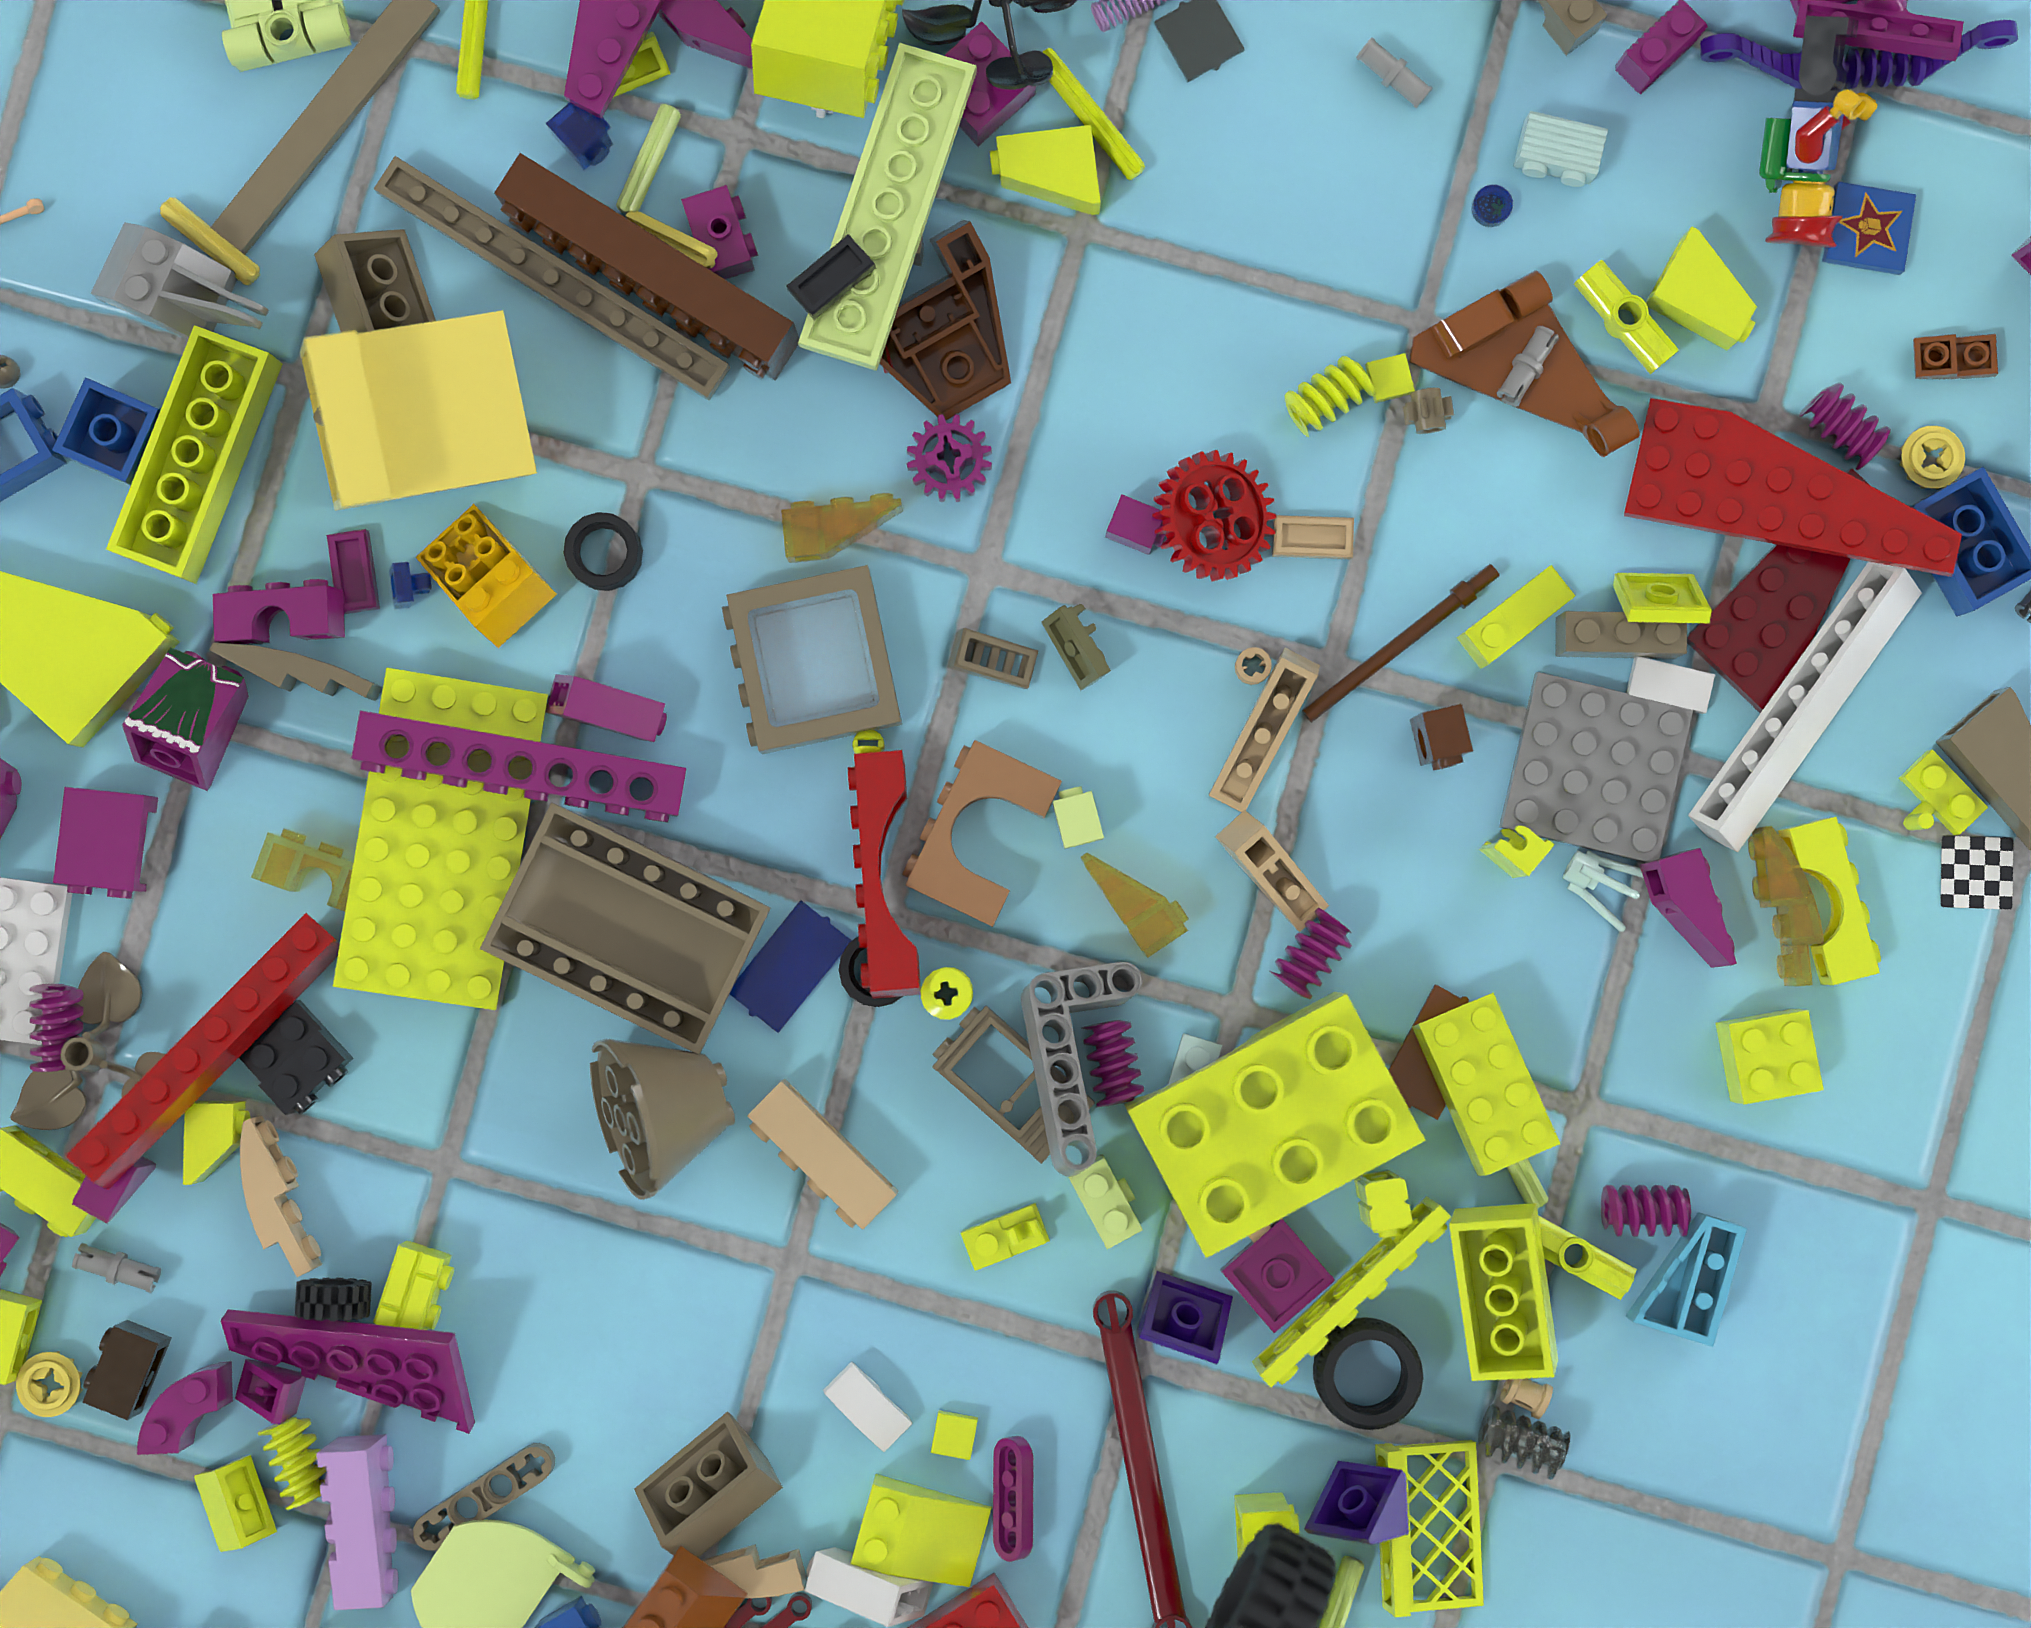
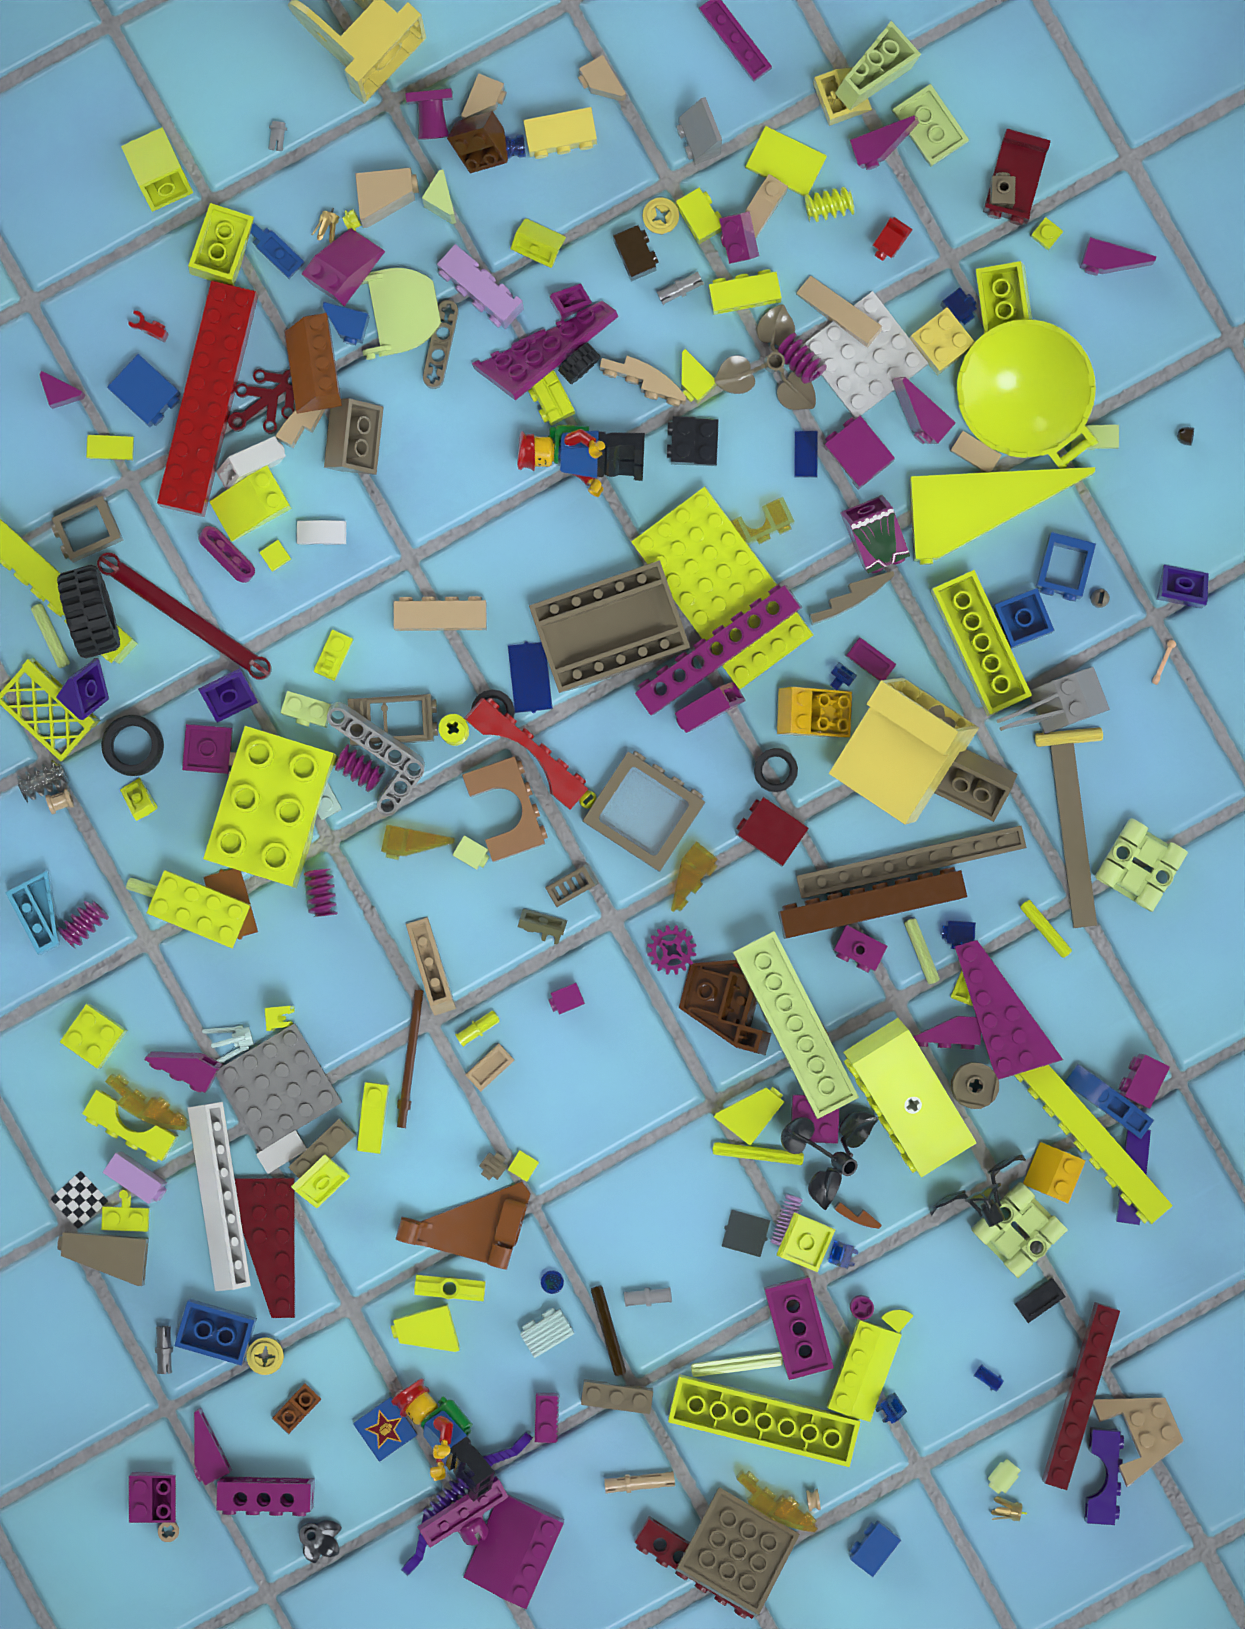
camera: 135 degrees right, 0 degrees up
(106, 1203) = (714, 321): magenta slope -> none
(174, 904) = (805, 454): none -> clear blue tile
(180, 1408) = (597, 261): magenta brick -> none
(204, 1053) = (727, 412): red brick -> none
(246, 614) = (868, 628): magenta arch -> none
(296, 1460) = (529, 285): neon yellow piece -> none
(438, 1175) = (584, 453): none -> piece
(657, 1109) = (524, 566): dark tan cone -> none
(682, 481) = (771, 831): none -> dark red brick
(687, 245) = (875, 925): light yellow axle -> none
(831, 276) = (787, 971): black tile -> none
(1184, 523) = (546, 1016): red gear -> none
(1257, 677) = (455, 985): tan bush -> none
(1271, 869) = (371, 911): tan slope -> none
(1281, 598) = (477, 1028): none -> neon yellow axle
(1327, 394) = (541, 1131): neon yellow piece -> none
(1340, 1301) = (171, 780): neon yellow plate -> none
(1383, 1203) = (193, 819): neon yellow brick -> none
(1425, 1296) = (138, 799): none -> neon yellow slope
(1441, 737) = (354, 1033): reddish brown brick -> none
(1481, 80) = (608, 1330): none -> dark brown axle
(1504, 1292) = (110, 831): neon yellow brick -> none
(1527, 366) = (470, 1226): light grey pin -> none
(1595, 1265) = (81, 881): neon yellow piece -> none
(1743, 482) = (332, 1265): red wing -> none
(1847, 424) = (314, 1332): magenta piece -> none
(1889, 826) = (135, 1178): none -> lavender brick

